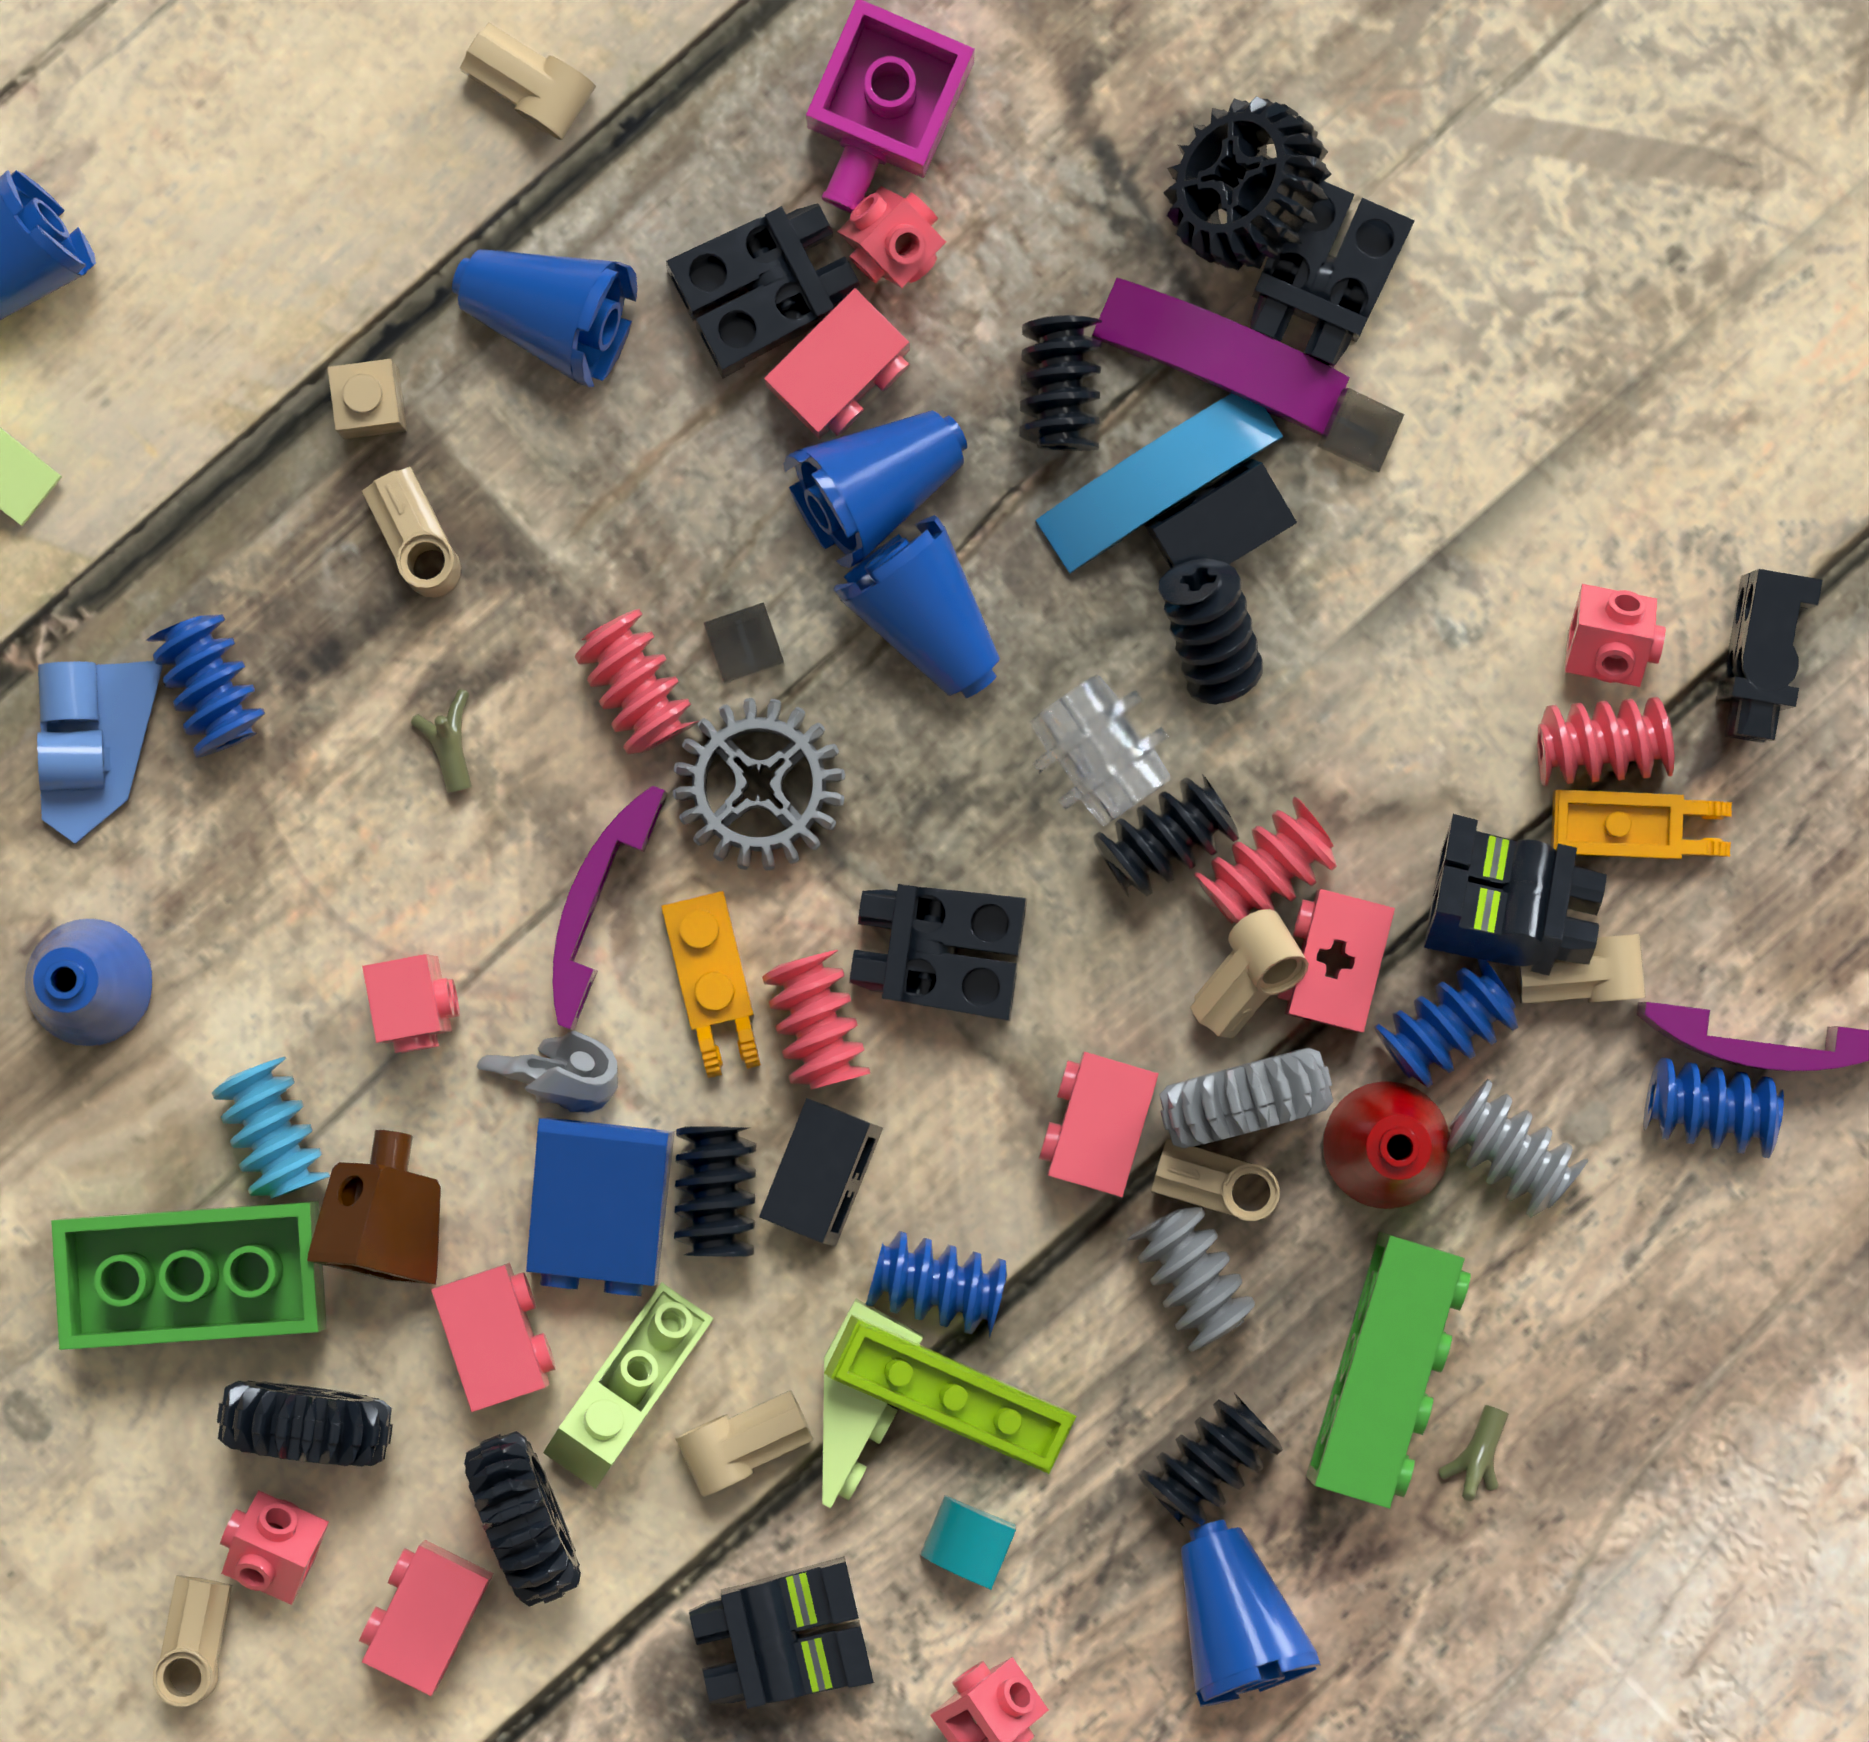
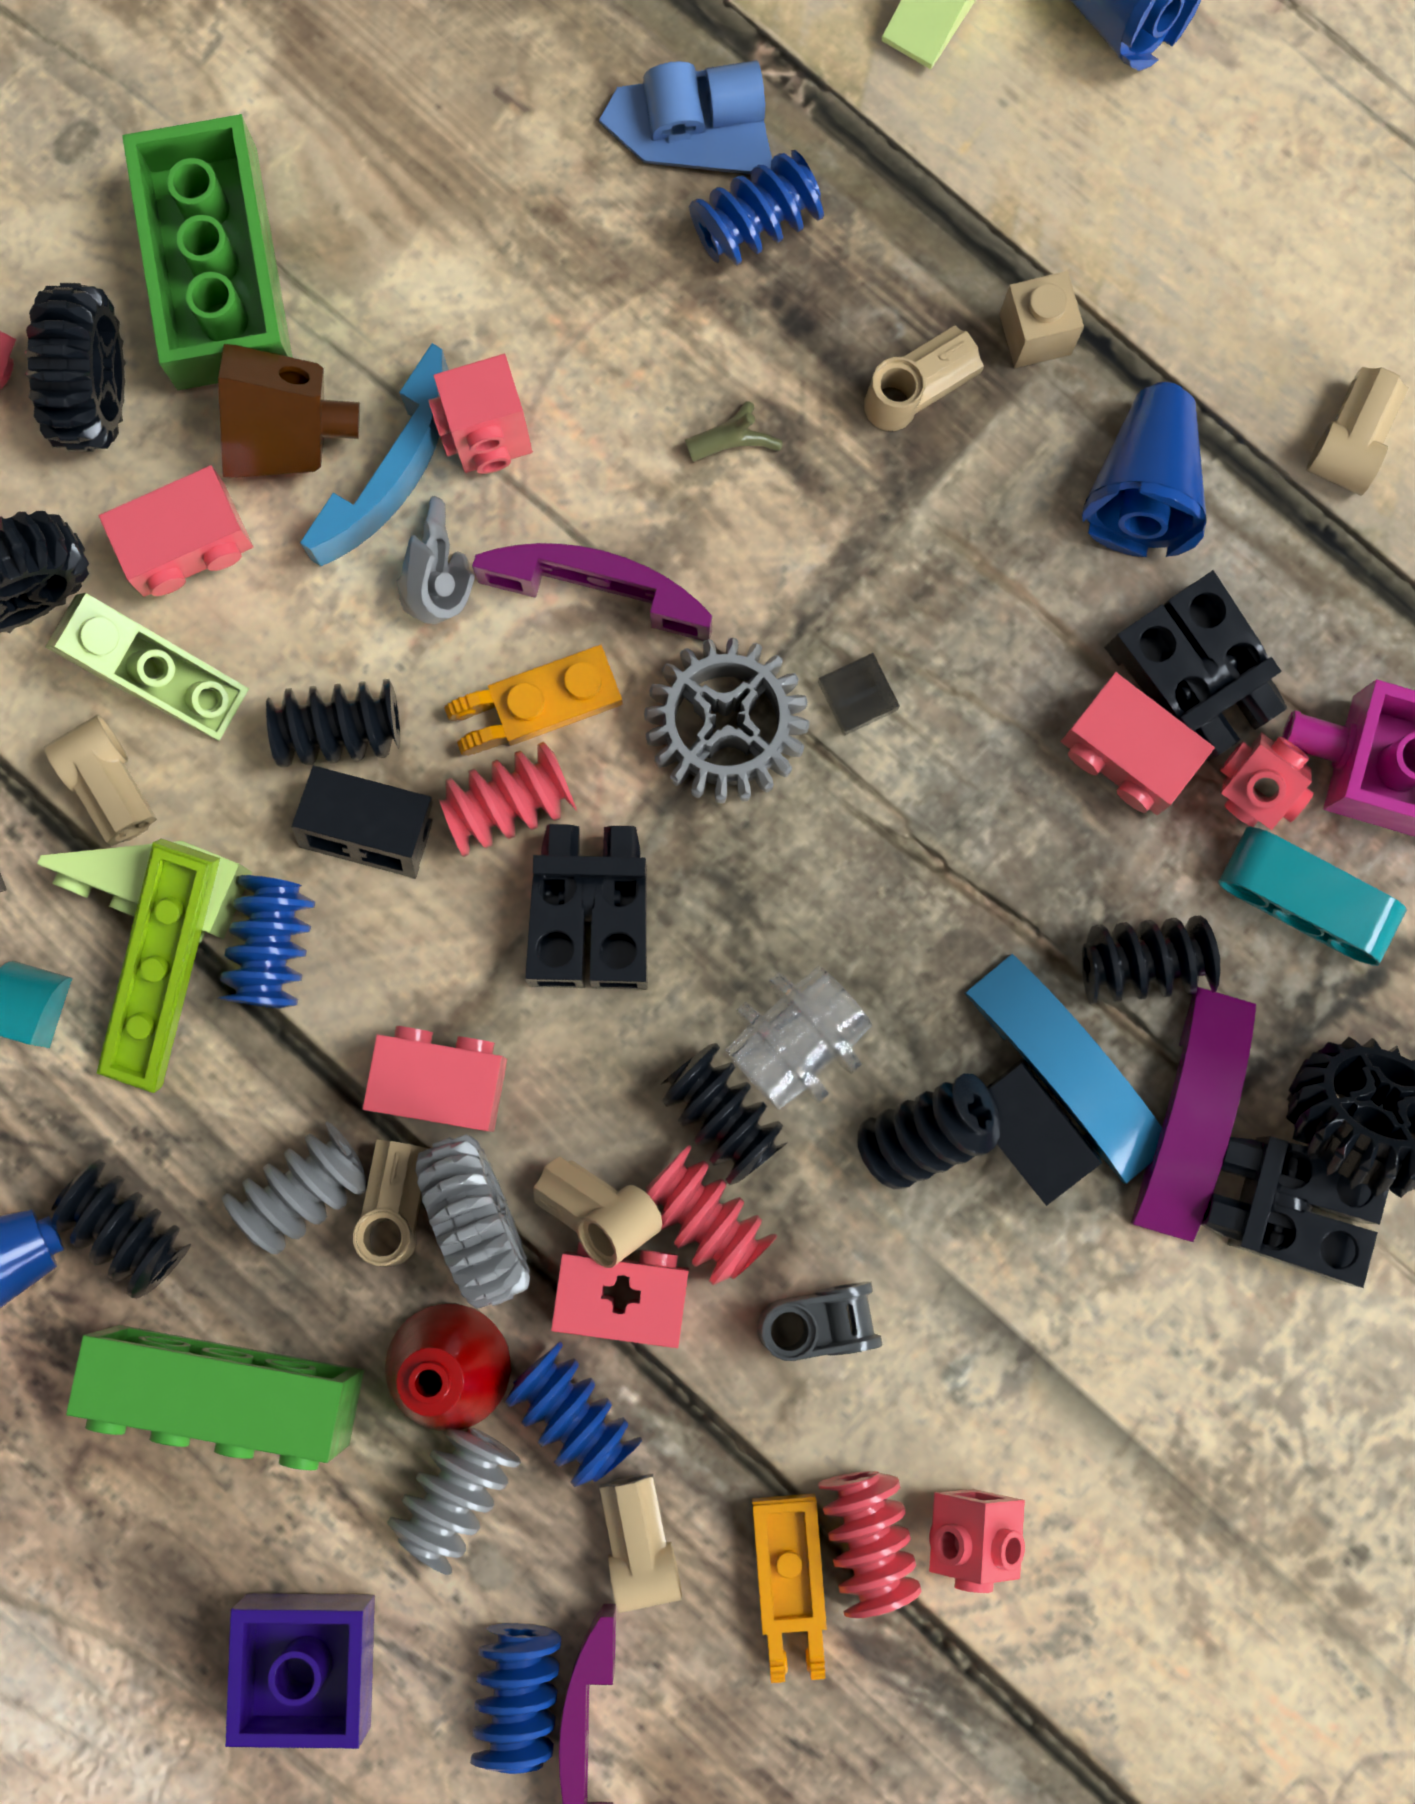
camera: 80 degrees right, 5 degrees down
(110, 984) = (471, 132): blue cone -> none
(269, 1130) = (351, 310): medium azure piece -> none
(500, 1160) = (345, 526): none -> dark azure slope
(598, 1204) = (314, 614): blue slope -> none
(633, 684) = (806, 590): coral piece -> none
(873, 480) = (1032, 792): blue cone -> none
(924, 608) = (912, 855): blue cone -> none
(1014, 205) = (1312, 896): none -> teal beam
(1360, 430) = (1143, 1259): clear smoke tile -> none
(1386, 760) = (825, 1323): none -> dark grey piece
(1479, 1454) = (151, 1496): olive bar -> none
(1512, 900) = (699, 1467): black hips -> none
(1661, 1314) = (300, 1670): none -> dark purple brick
(1762, 652) = (983, 1699): black hips -> none

